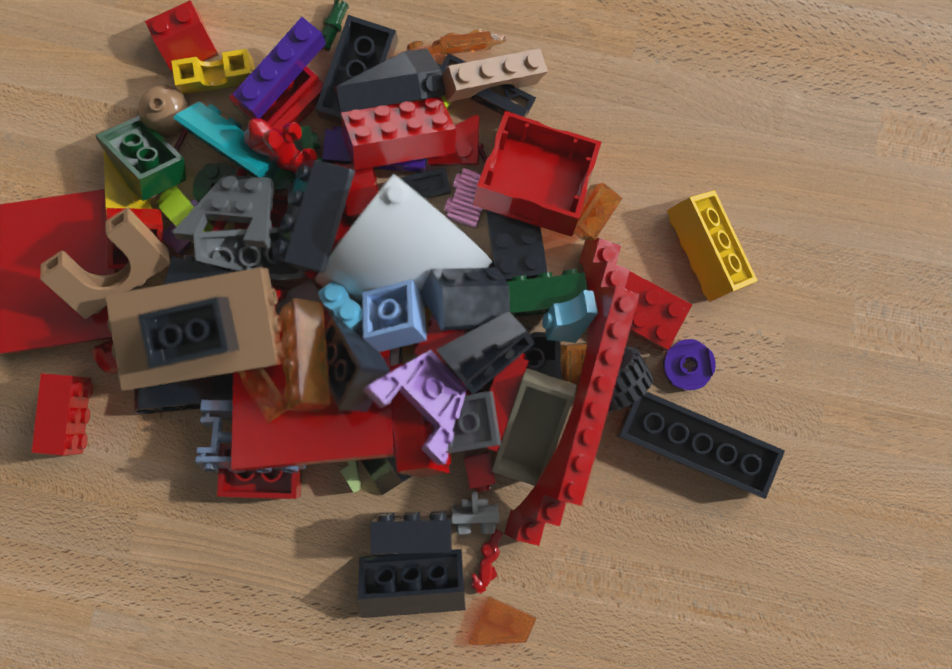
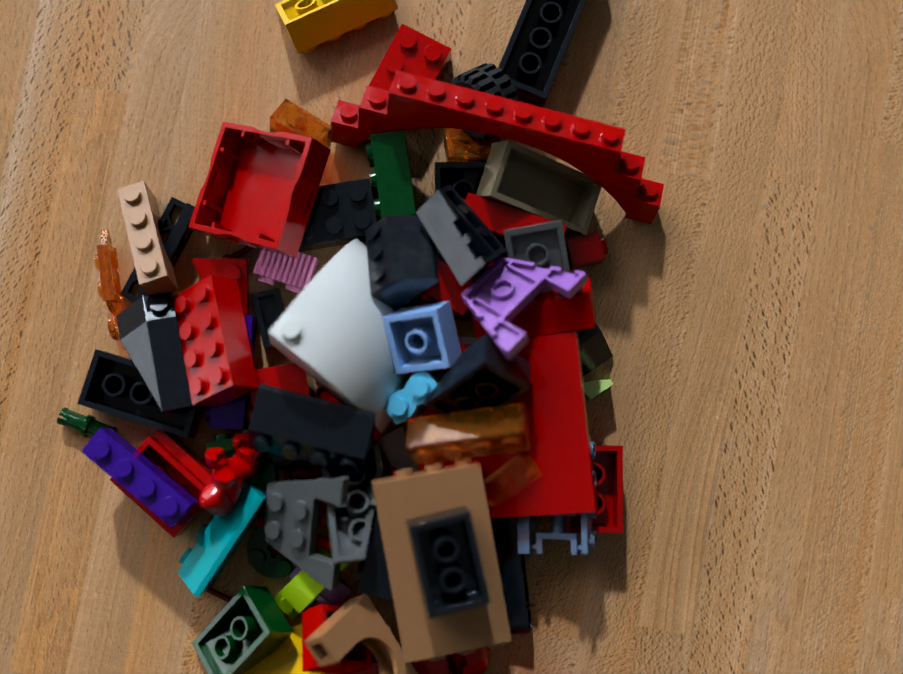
camera: 95 degrees left, 0 degrees up
(159, 107) = (184, 616): medium nougat cylinder -> none
(181, 34) = (101, 597): red slope -> none
(199, 76) = (146, 574): yellow arch -> none
(411, 533) = (655, 319): black brick -> none
(411, 584) = (706, 320): black slope -> none
(475, 511) = (629, 254): light grey hips -> none
(486, 570) = (691, 242): red animal -> none
(502, 624) = (745, 226): clear orange wing -> none
(570, 319) = (421, 147): medium azure arch -> none
(697, 353) = (476, 19): dark purple plate -> none

